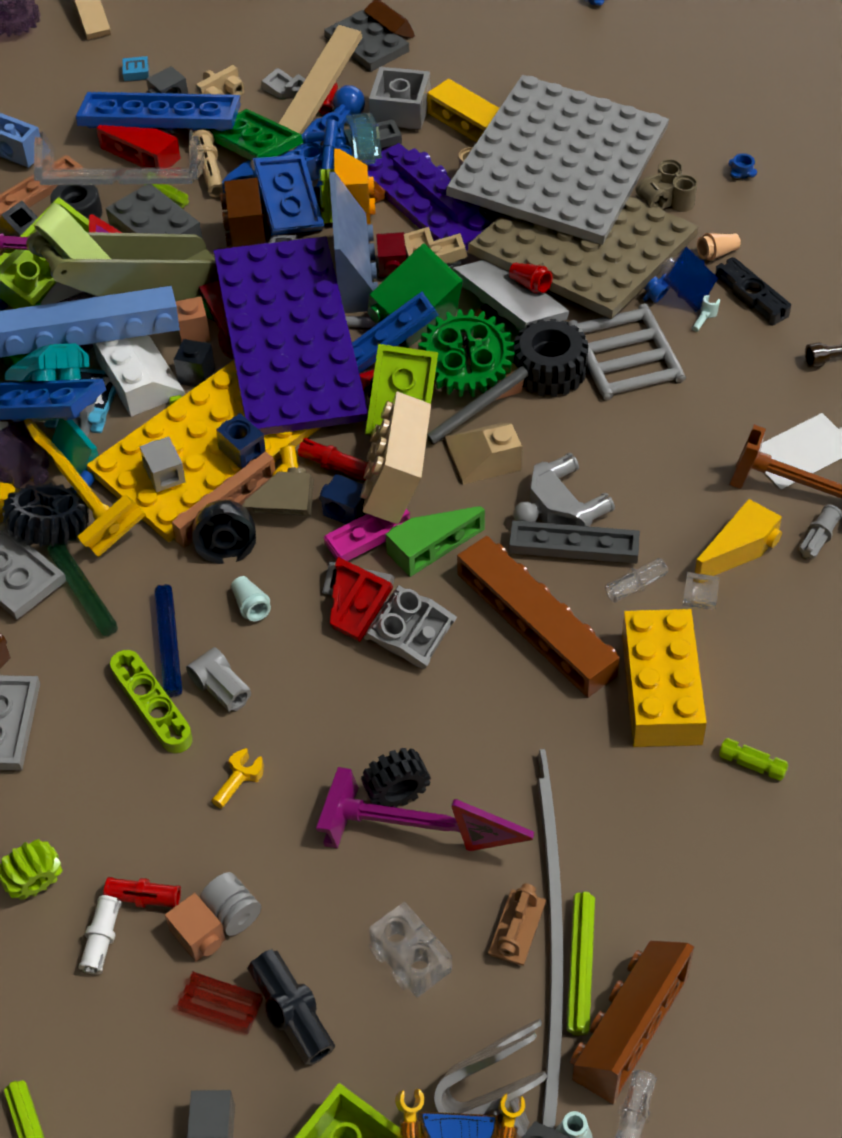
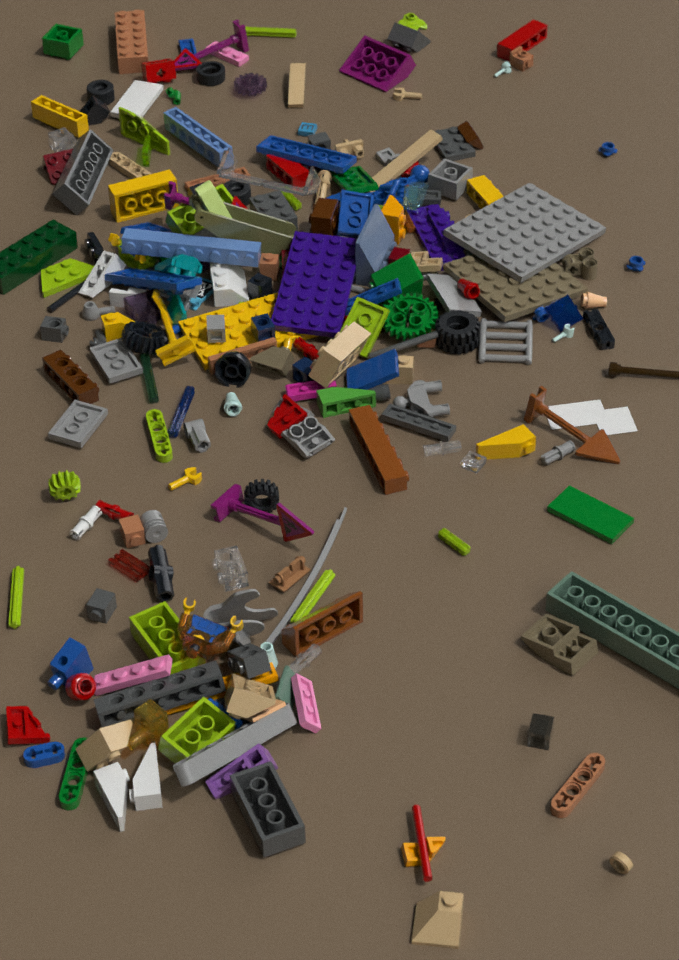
camera: 20 degrees right, 10 degrees down
(460, 470) = (373, 371): none -> blue tile
(487, 499) = (382, 392): none -> dark grey cone
(663, 678) = (426, 492): yellow brick -> none

